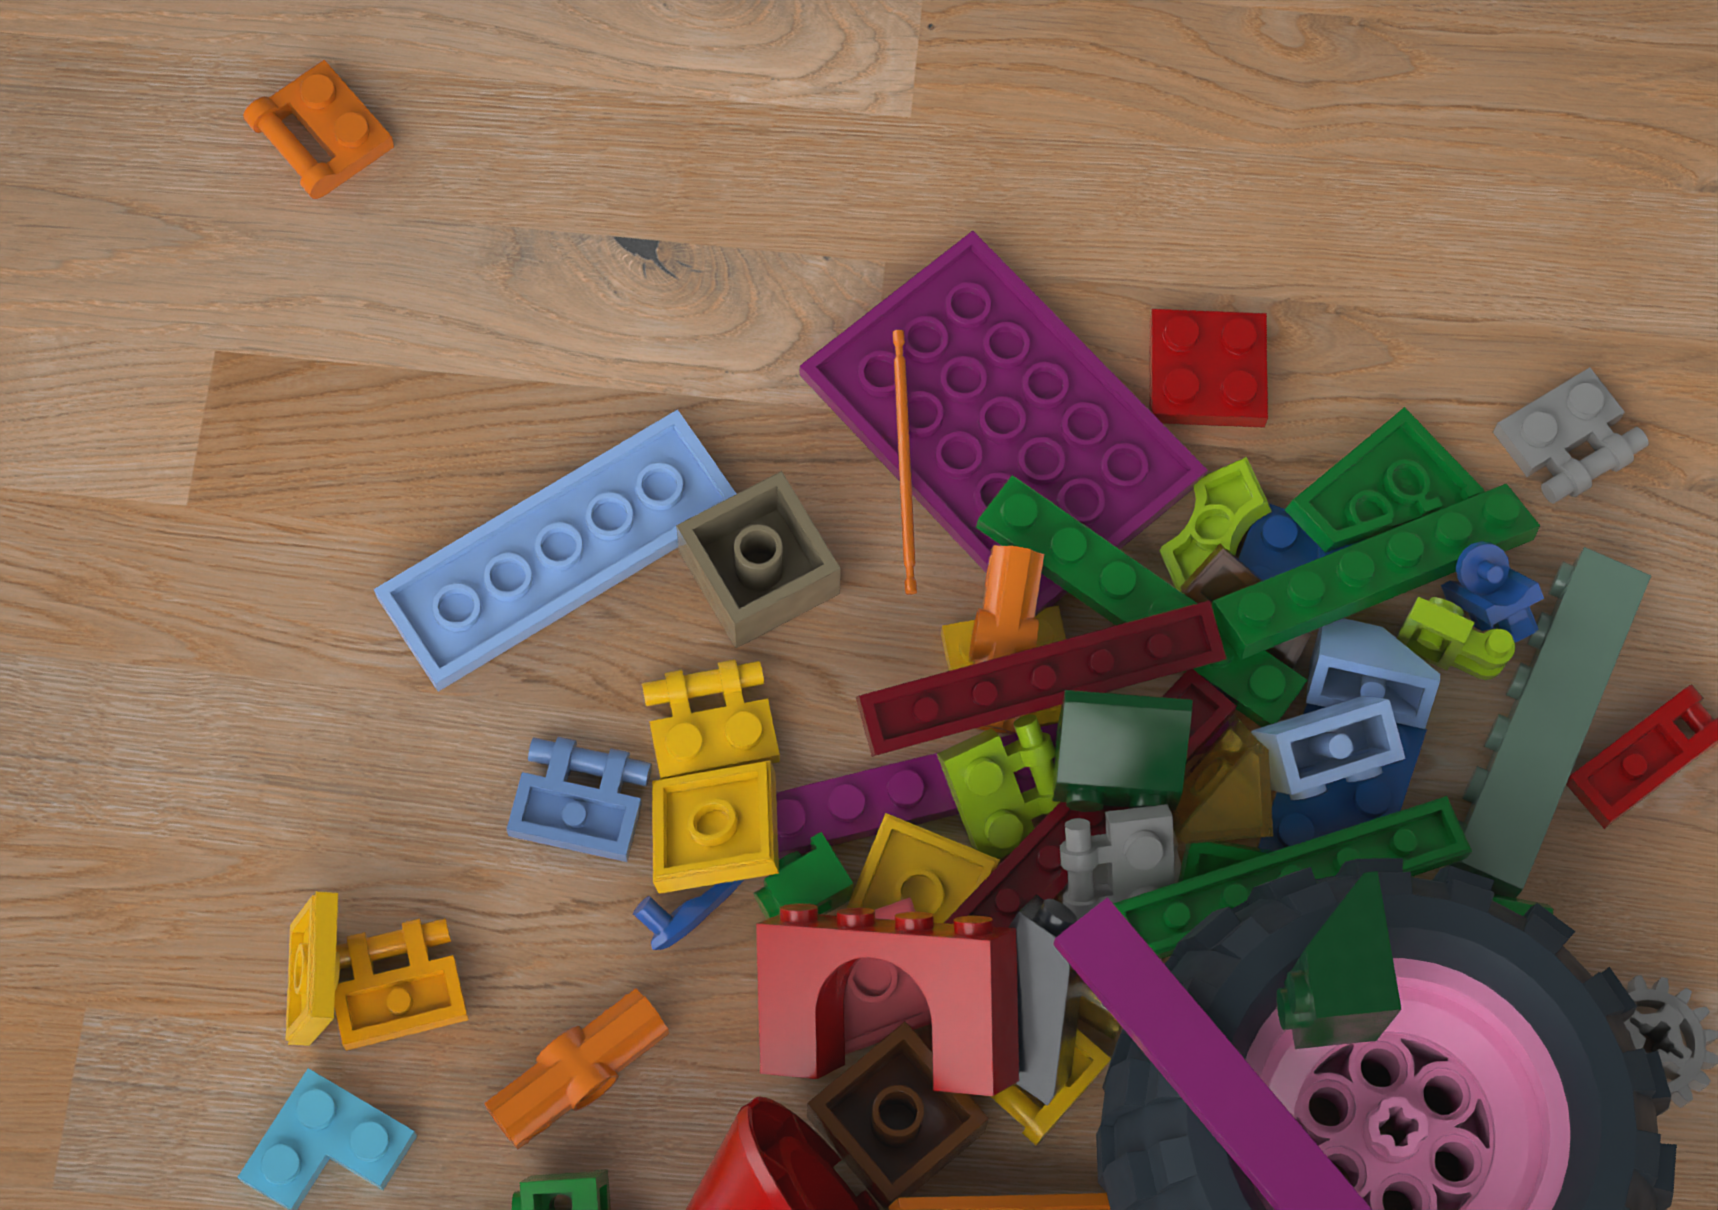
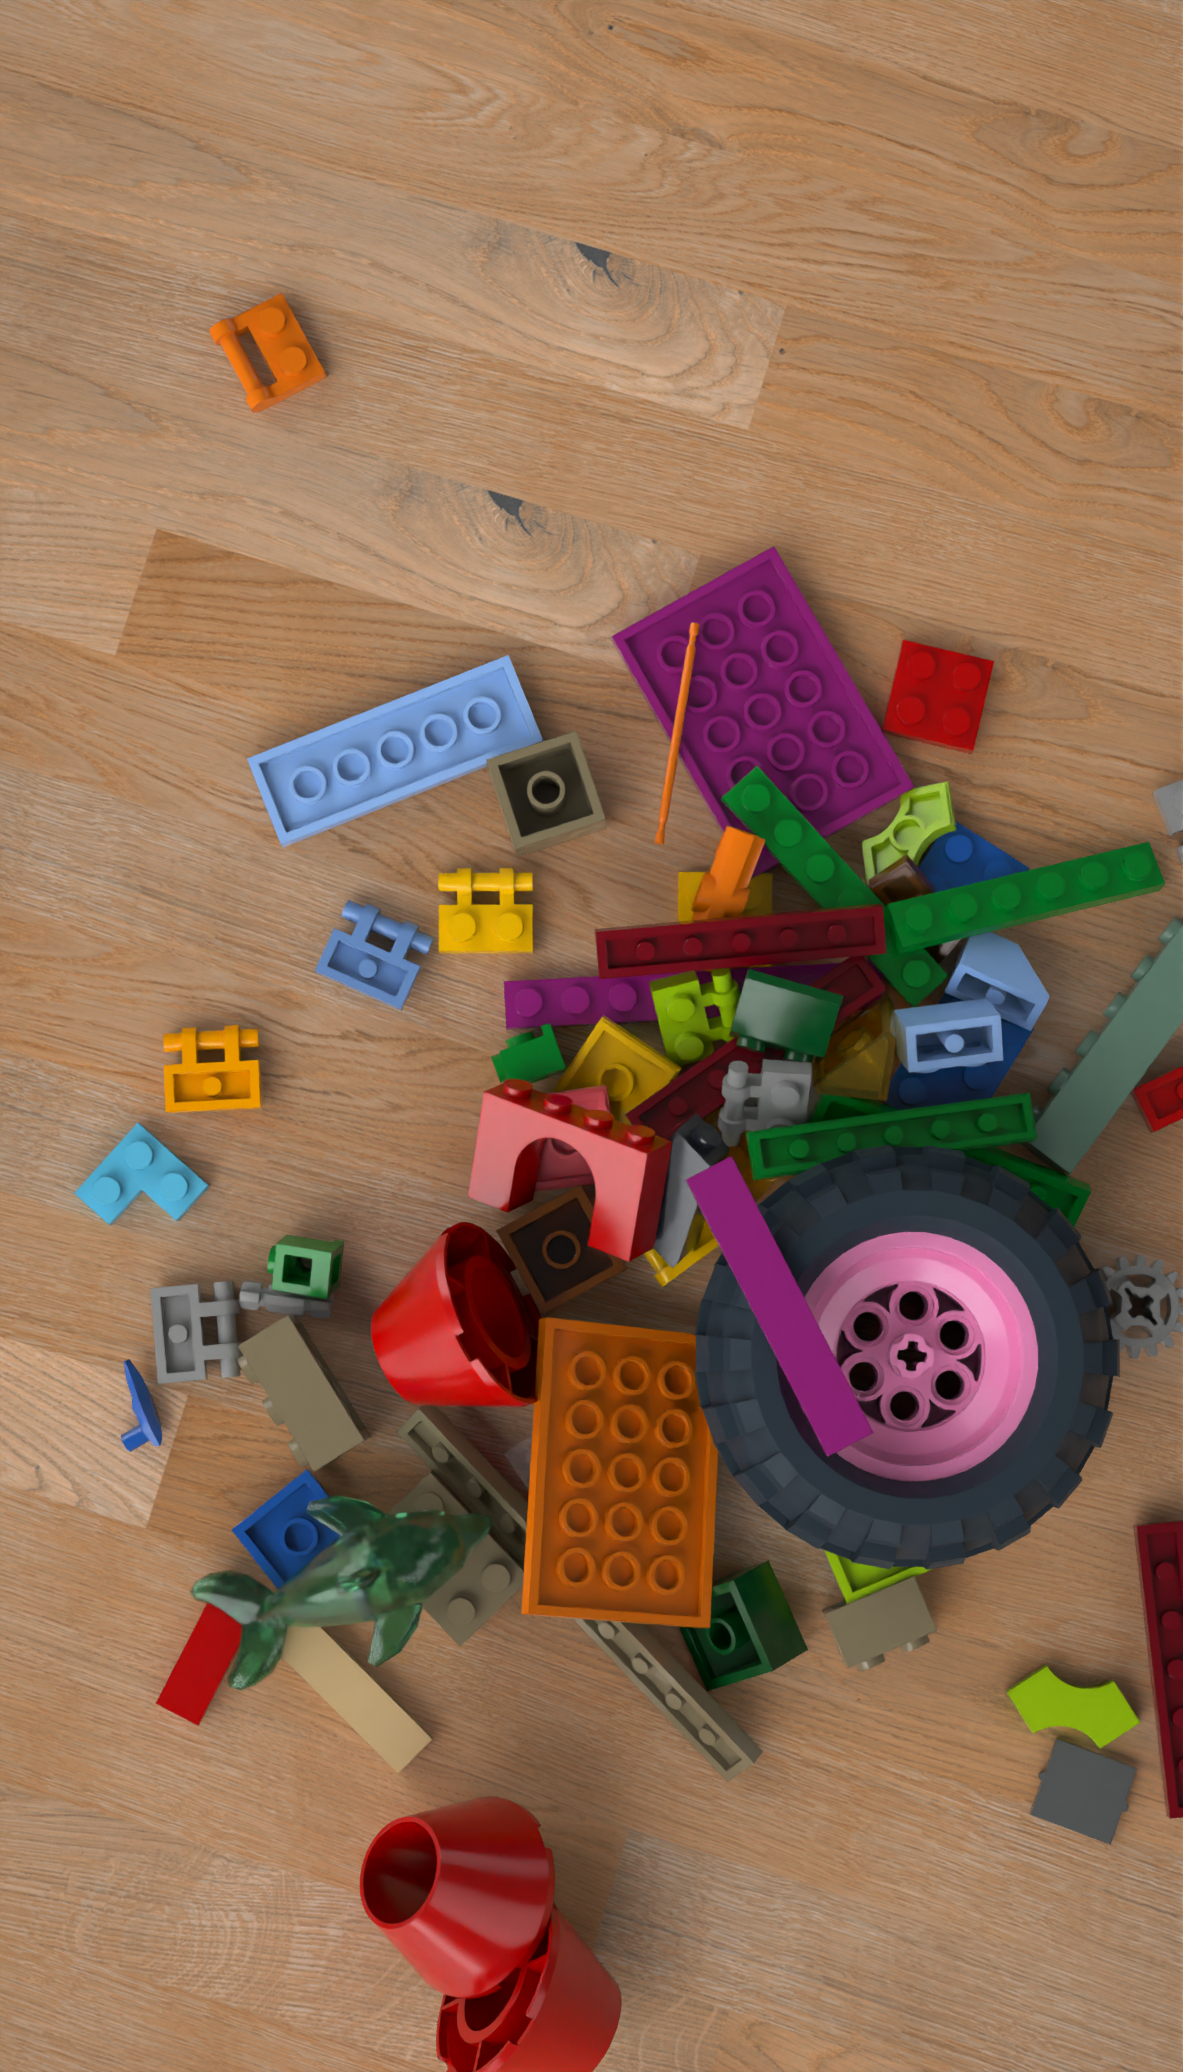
camera: 15 degrees right, 15 degrees up
(312, 969) = (151, 1053): yellow plate -> none
(576, 1068) = (334, 1163): orange piece -> none
(674, 926) = (437, 1063): blue bar -> none
(714, 827) = (471, 1000): yellow plate -> none
(1345, 976) = (886, 1253): dark green slope -> none
(1382, 485) = (1049, 826): green wing -> none
(1446, 639) = (1059, 959): lime plate -> none
(1493, 591) = (1111, 936): blue hips -> none

